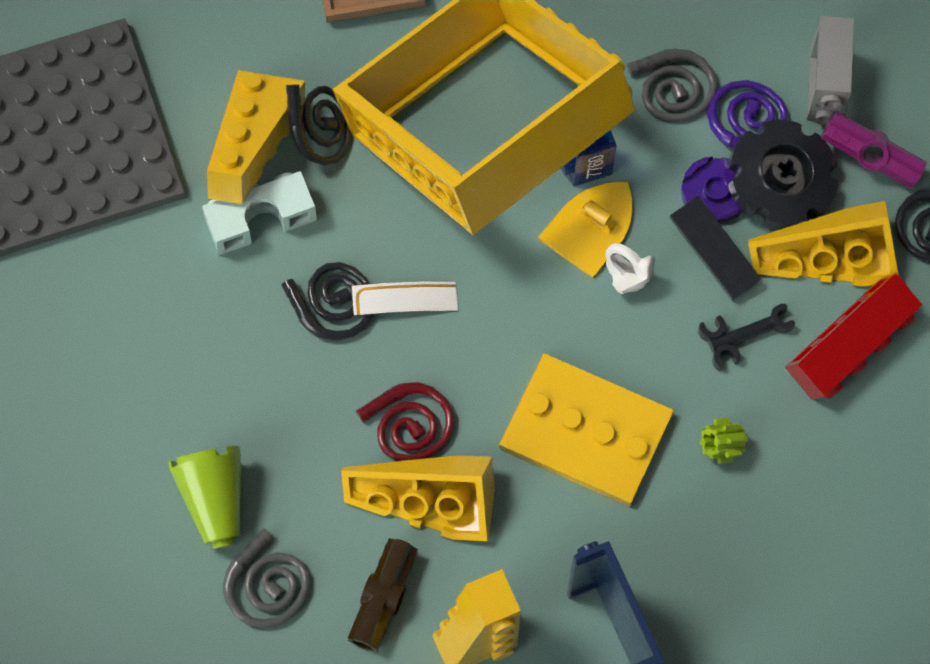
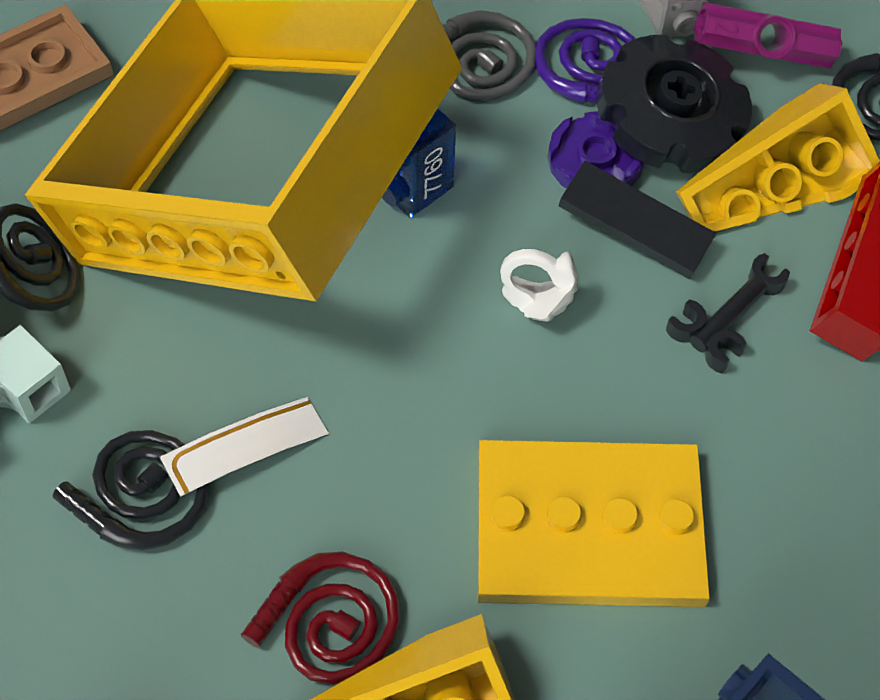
camera: 25 degrees left, 10 degrees down
(590, 225) = (458, 257): yellow shield -> none
(723, 440) = (790, 456): lime gear -> none

